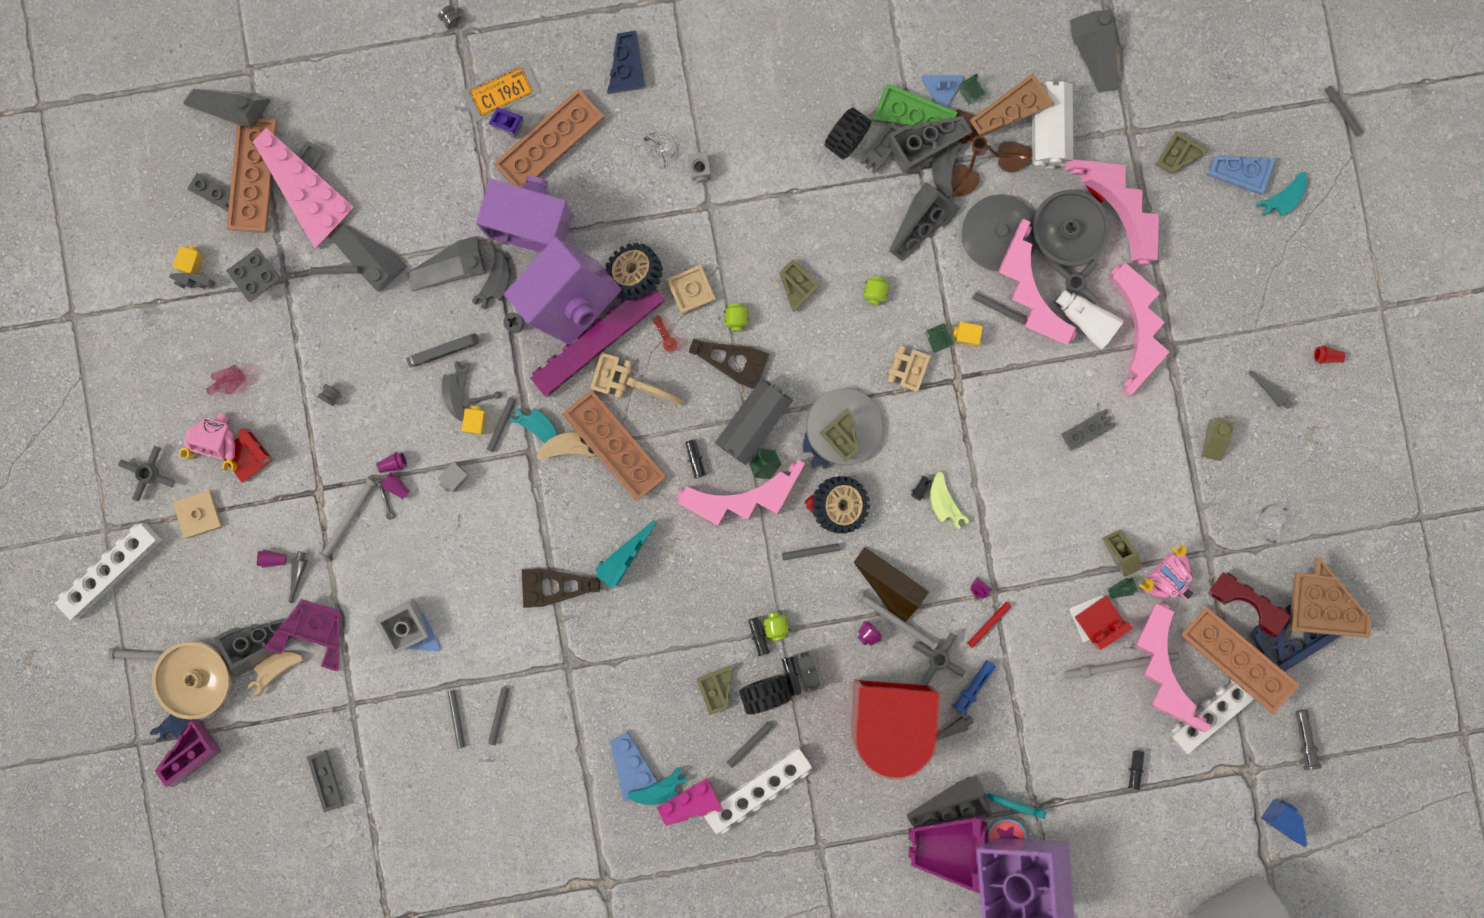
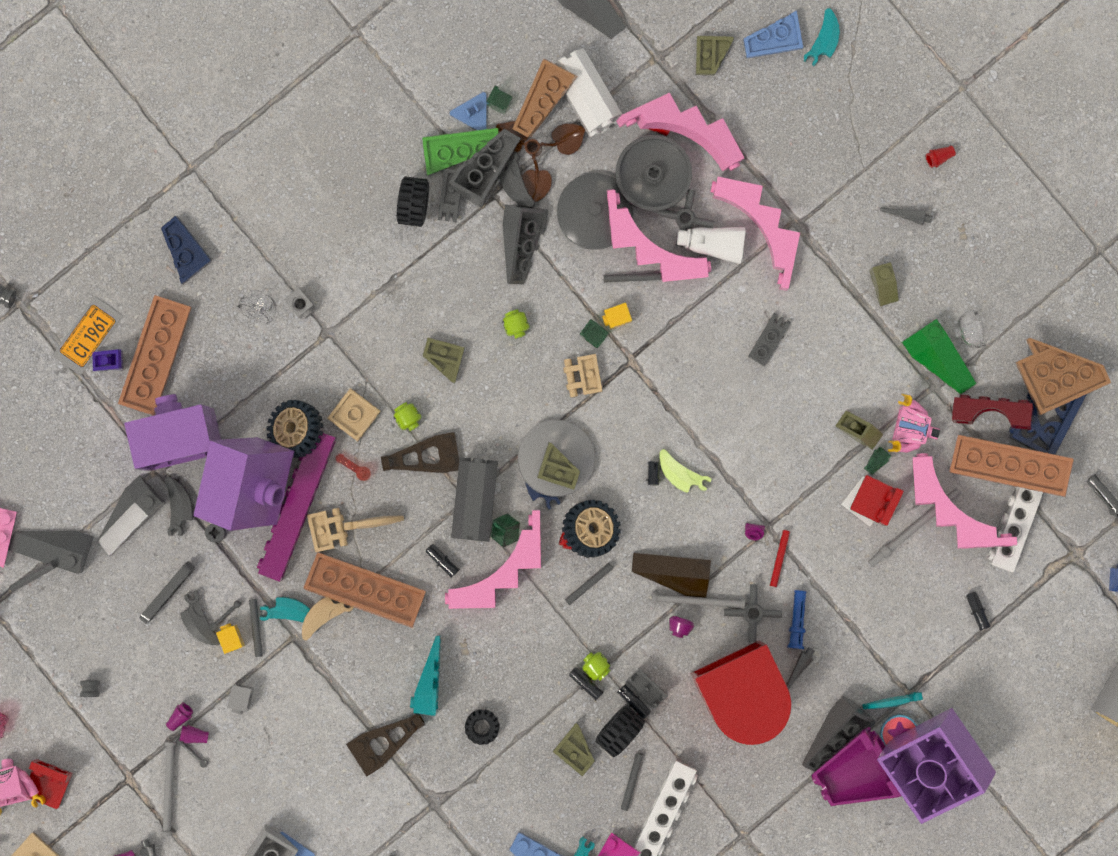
camera: 30 degrees left, 0 degrees up
(635, 622) = (482, 715): none -> black tyre
(1229, 528) = (938, 354): none -> green wedge

